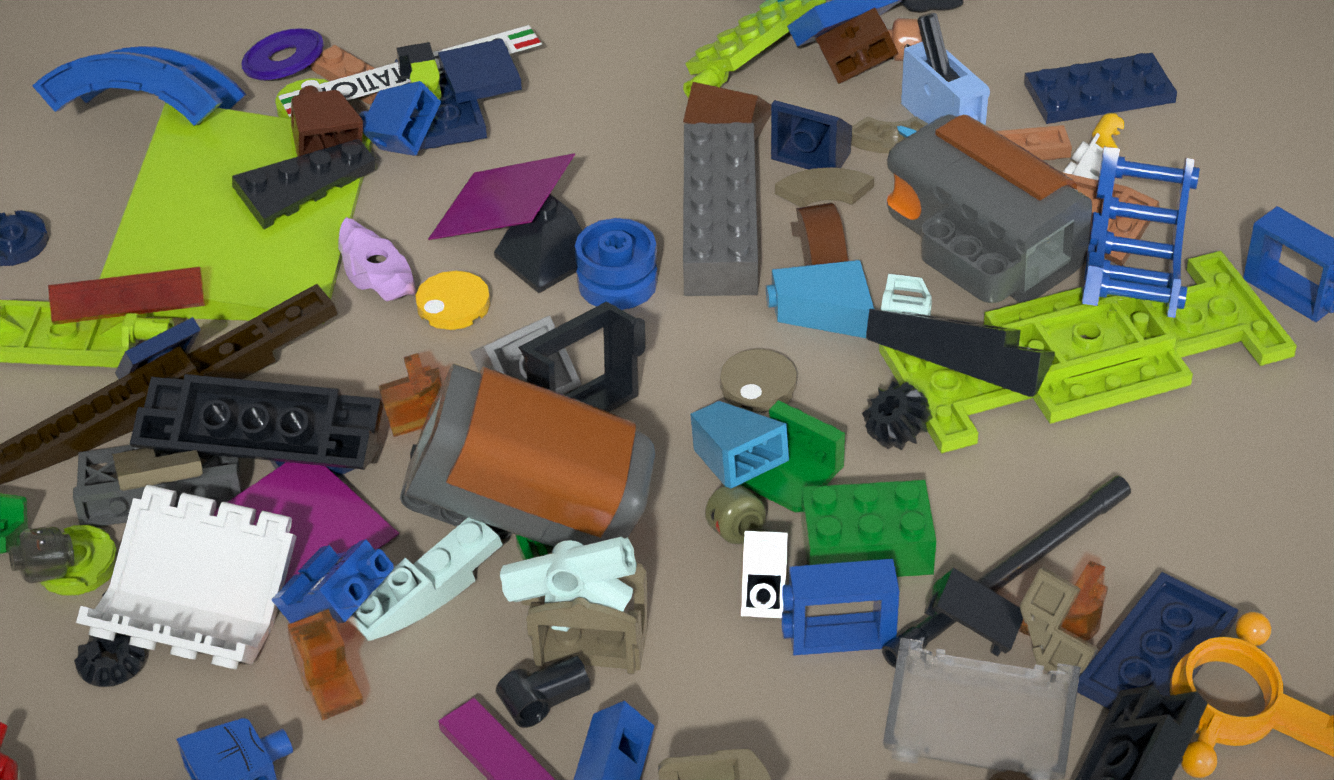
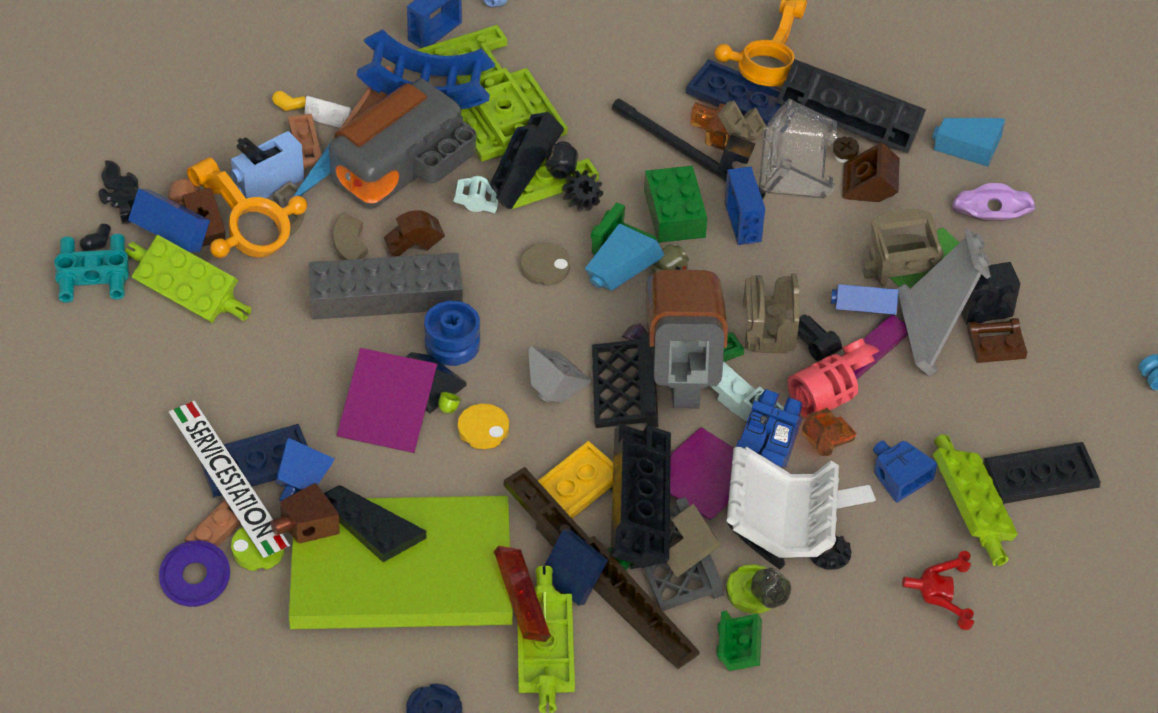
camera: 100 degrees left, 5 degrees up
(172, 75) = (288, 622): blue fence -> none
(212, 700) = (855, 496): none -> white sticker
(323, 365) = (579, 479): none -> yellow tile
(389, 278) = (440, 479): lavender piece -> none
(410, 397) = (595, 417): clear orange brick -> none
(419, 65) = (249, 459): leg -> none
(425, 676) = (830, 379): none -> coral cylinder
(479, 71) = (236, 430): dark blue tile -> none
(495, 256) = (448, 402): none -> lime hinge
(574, 572) = (779, 289): light aqua piece -> none
(622, 346) = (600, 349): black piece -> none
(722, 105) = (276, 288): reddish brown slope -> none
(764, 572) = (710, 246): slope -> none
(808, 137) = (309, 239): dark blue slope -> none
(822, 297) = (471, 229): dark azure slope -> none
(865, 65) = (207, 175): none -> light orange piece
(953, 383) = (561, 160): none -> black head
(1100, 87) = (234, 104): dark blue plate -> none

